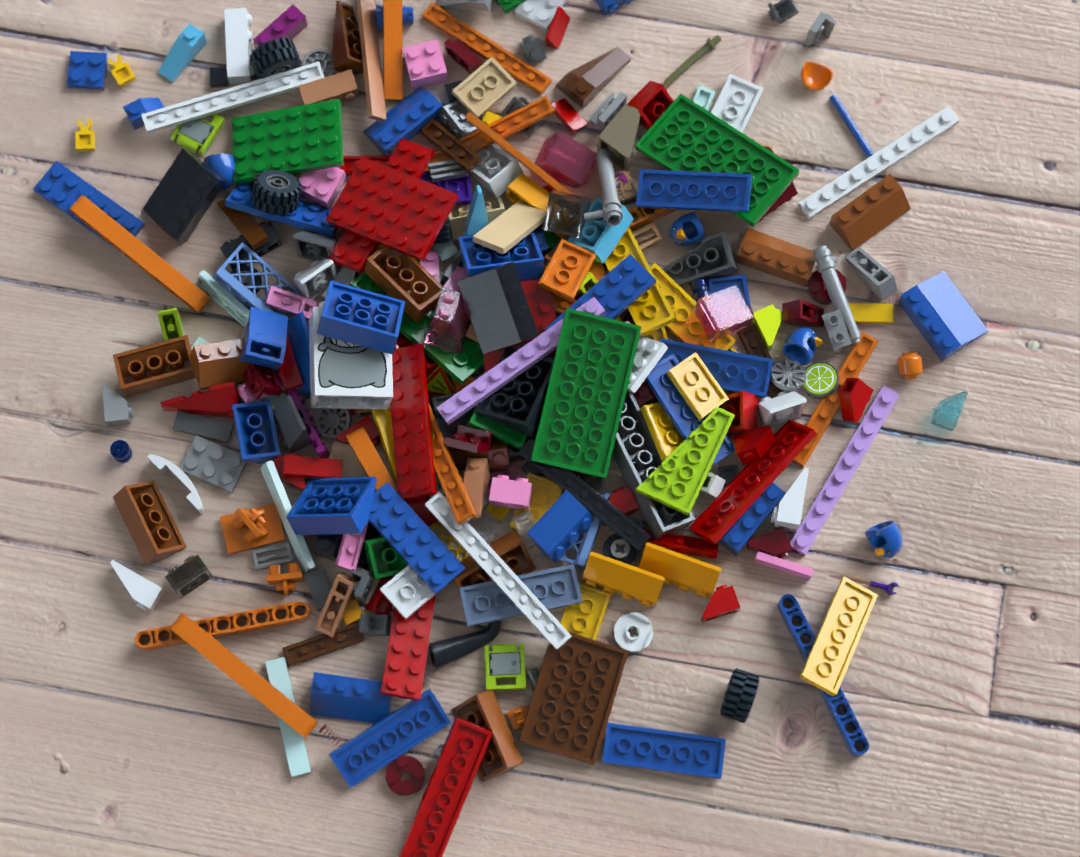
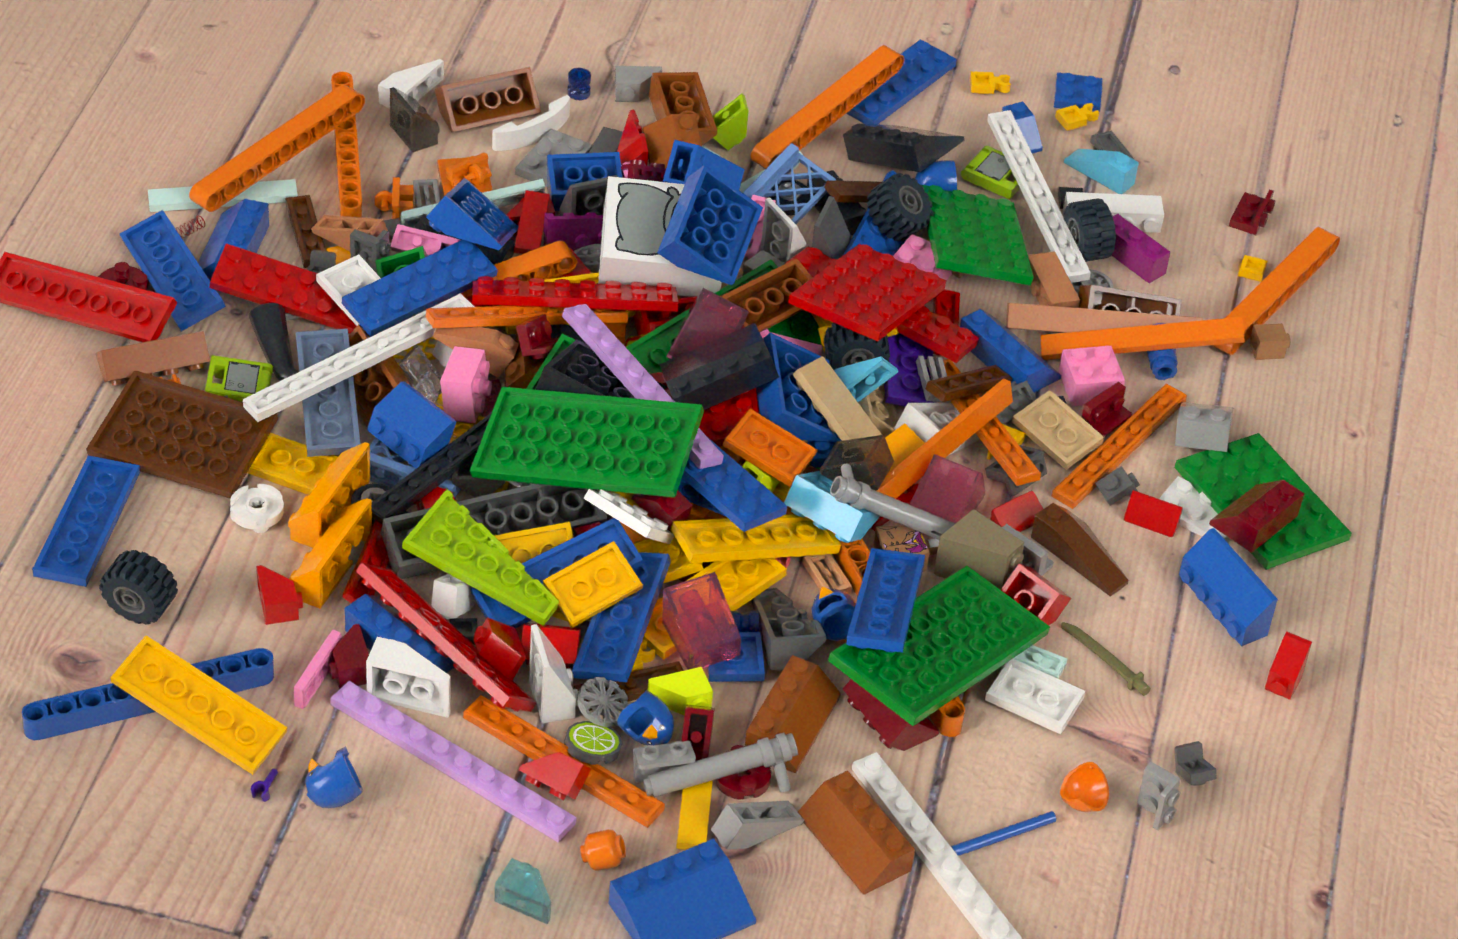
camera: 90 degrees right, 30 degrees down
(155, 46) = (1109, 142): none -> dark grey tile

